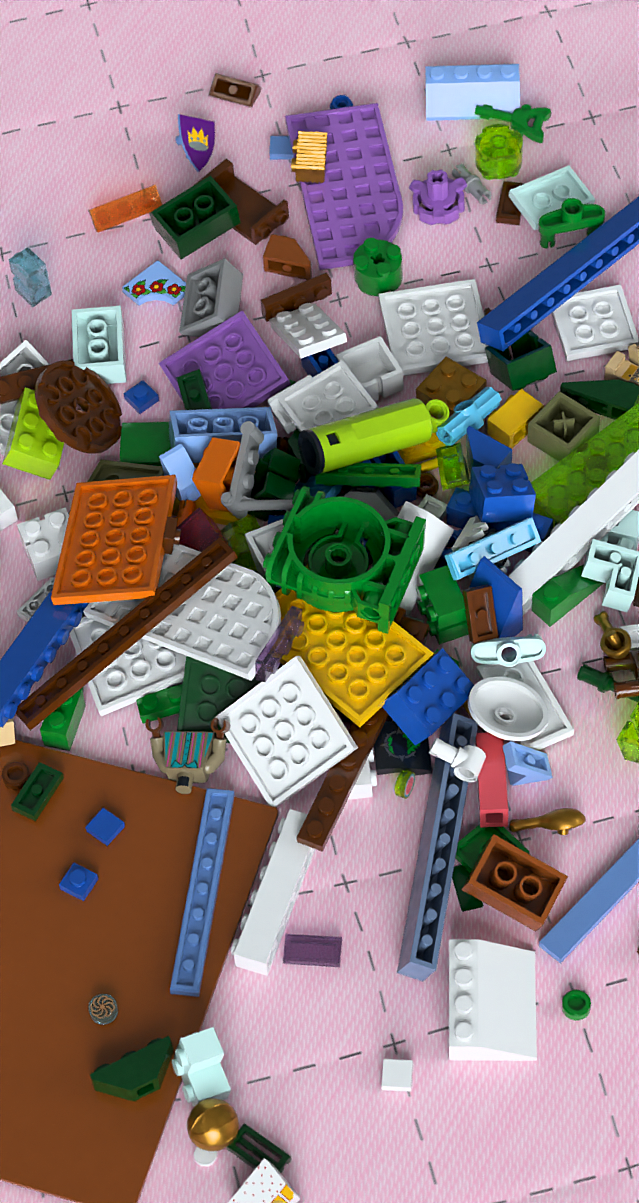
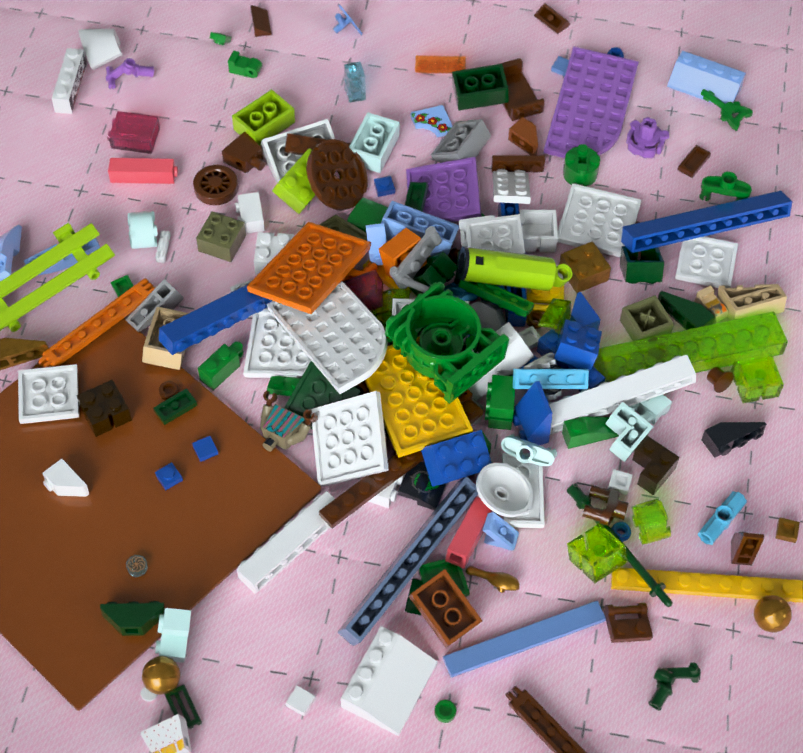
camera: 20 degrees right, 0 degrees up
(125, 633) = (280, 328): reddish brown plate -> none
(171, 535) = (343, 278): reddish brown plate -> none
(197, 139) = (508, 39): dark purple shield -> none
(202, 893) = (241, 520): medium blue tile -> none
(279, 644) = (370, 378): plate -> none
(311, 156) = (574, 77): brick -> none
(312, 950) = (292, 591): clear purple tile -> none
(404, 784) = (412, 509): clear neon green tile -> none
(465, 761) = (455, 511): white pin -> none
(468, 413) = (586, 285): medium azure piece -> none
(474, 184) = (674, 138): light grey pin -> none
(480, 613) = (519, 418): reddish brown plate -> none
(498, 152) = (702, 124): clear neon green brick -> none
(511, 420) = (612, 301): yellow brick -> none
(548, 194) = (716, 163): light aqua plate -> none
(614, 641) = (604, 477): pearl gold piece -> none

